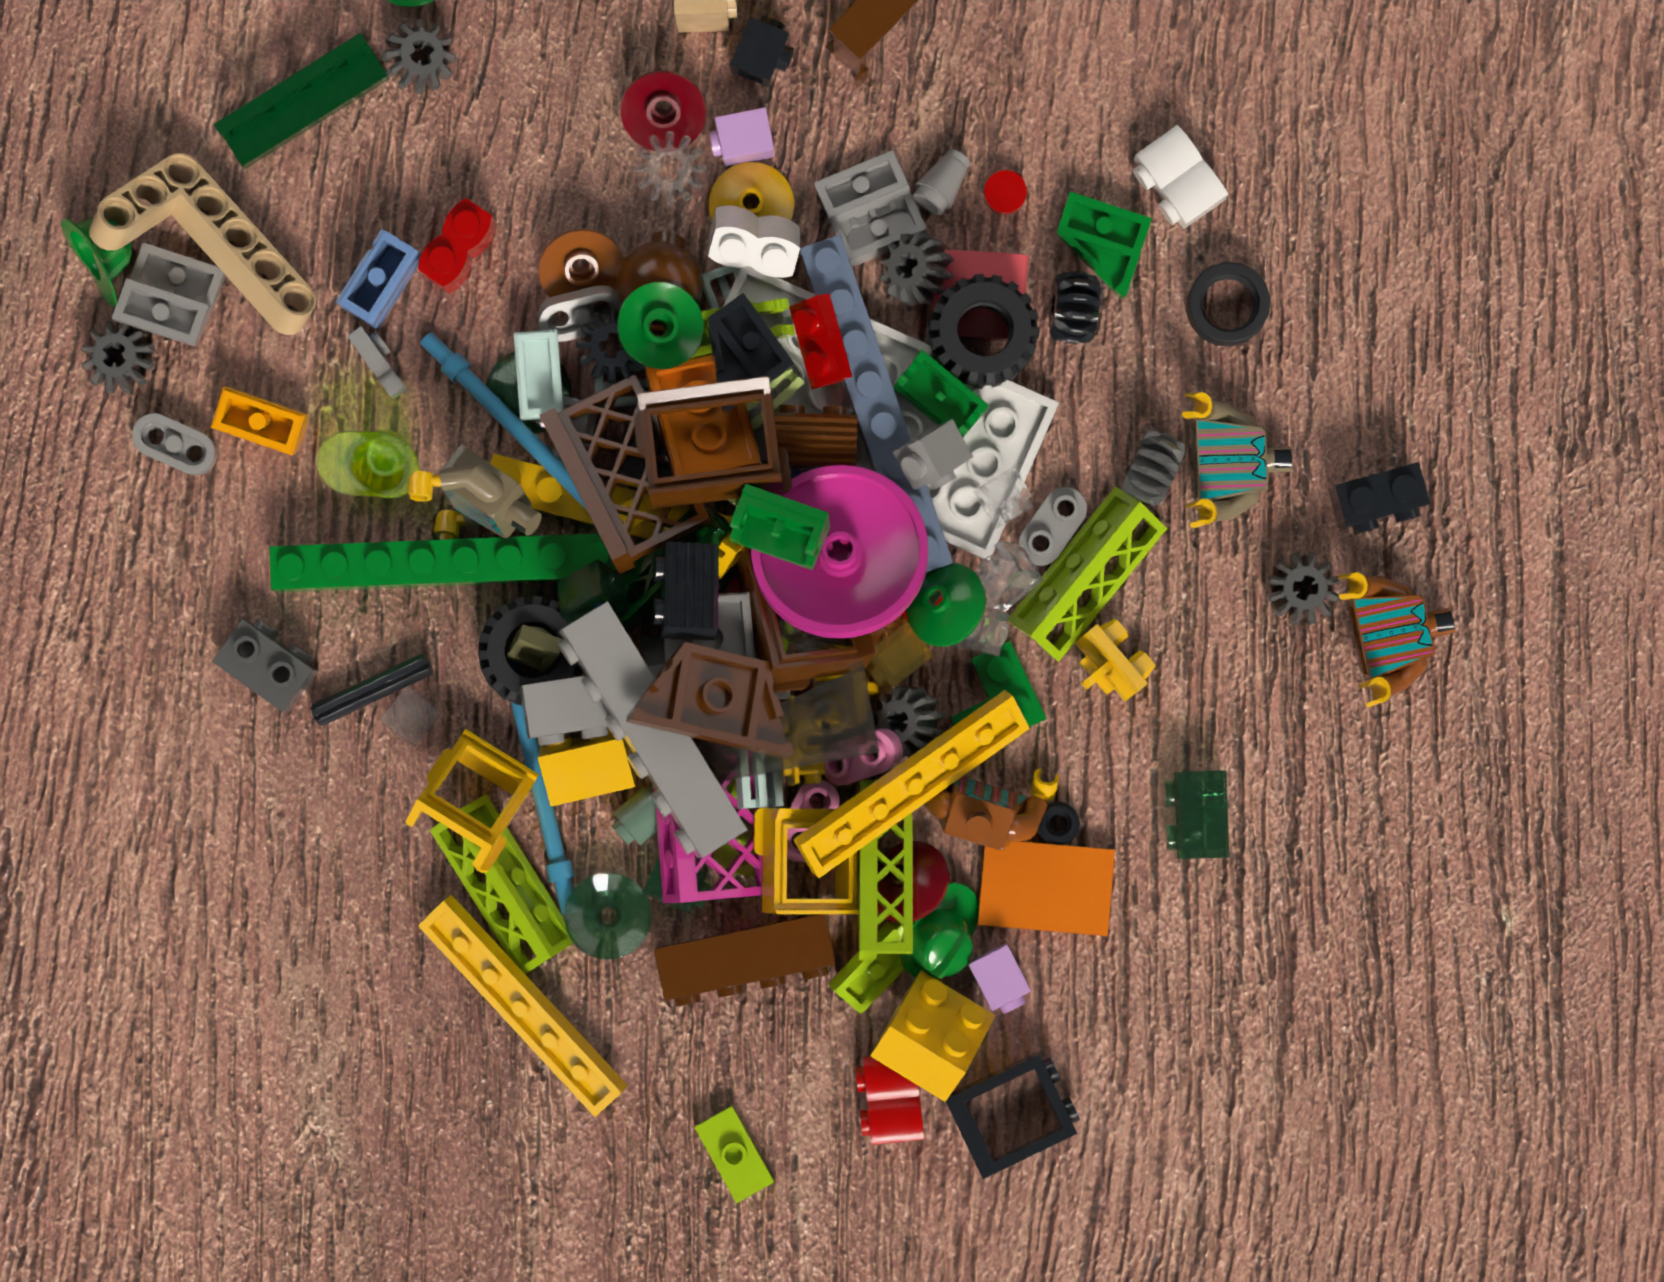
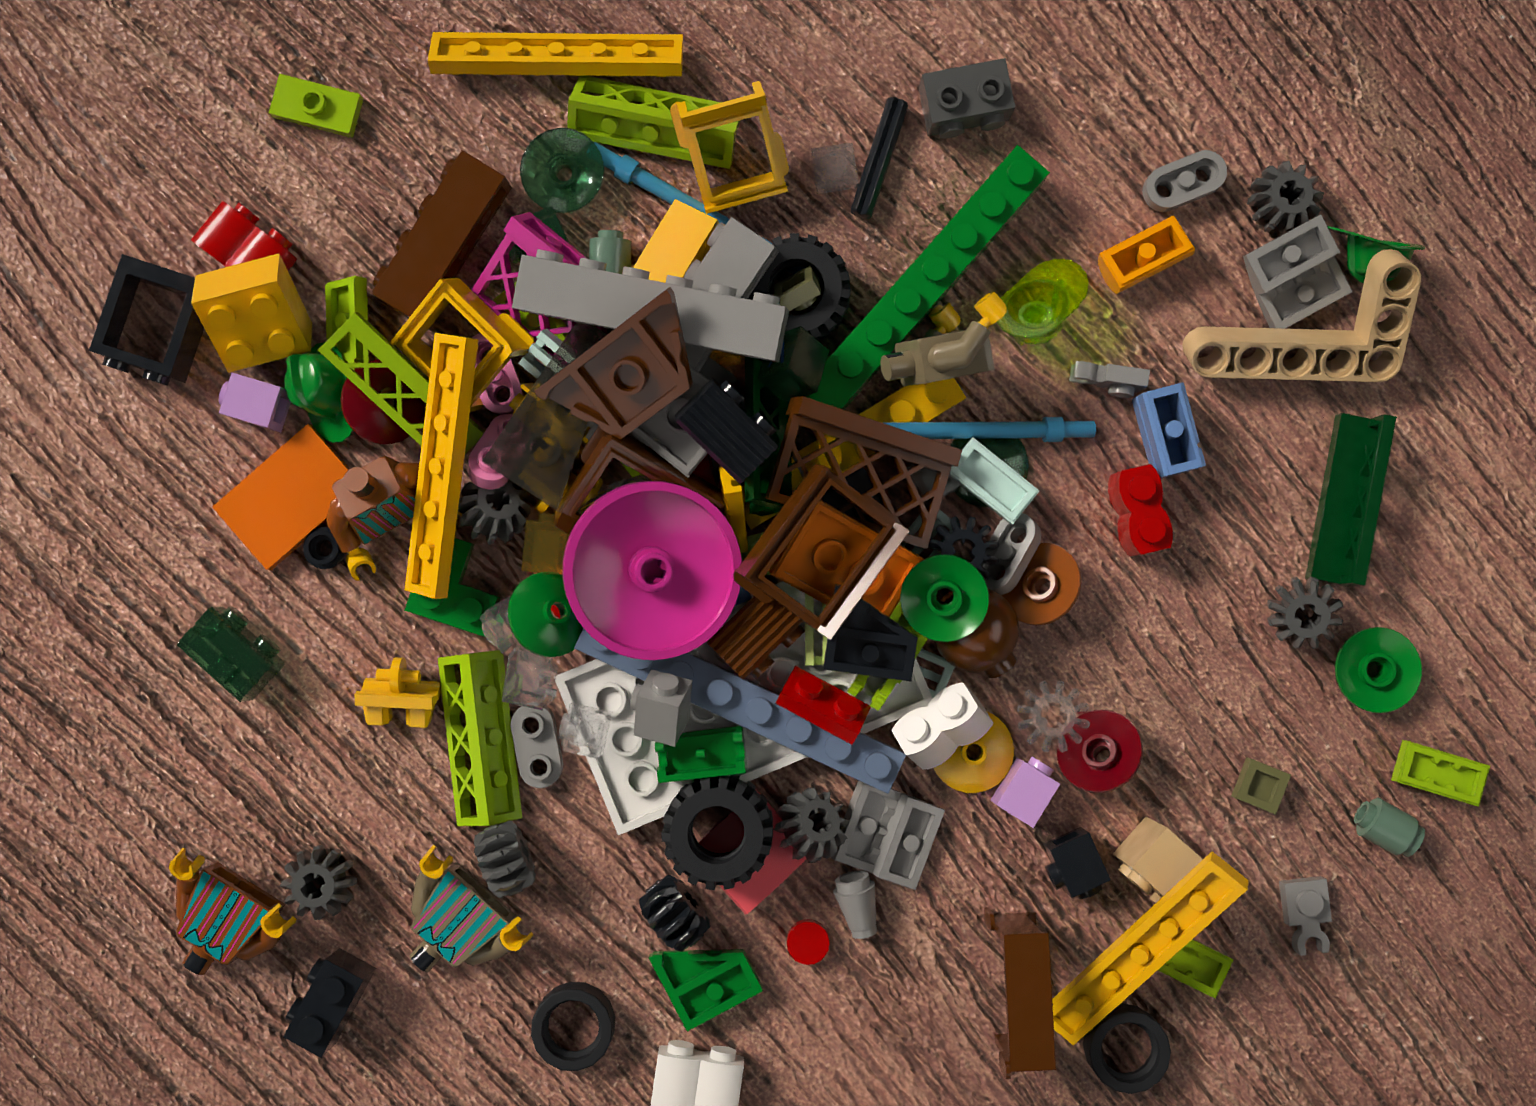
camera: 130 degrees right, 0 degrees up
(779, 527) = (710, 541): green hinge -> none

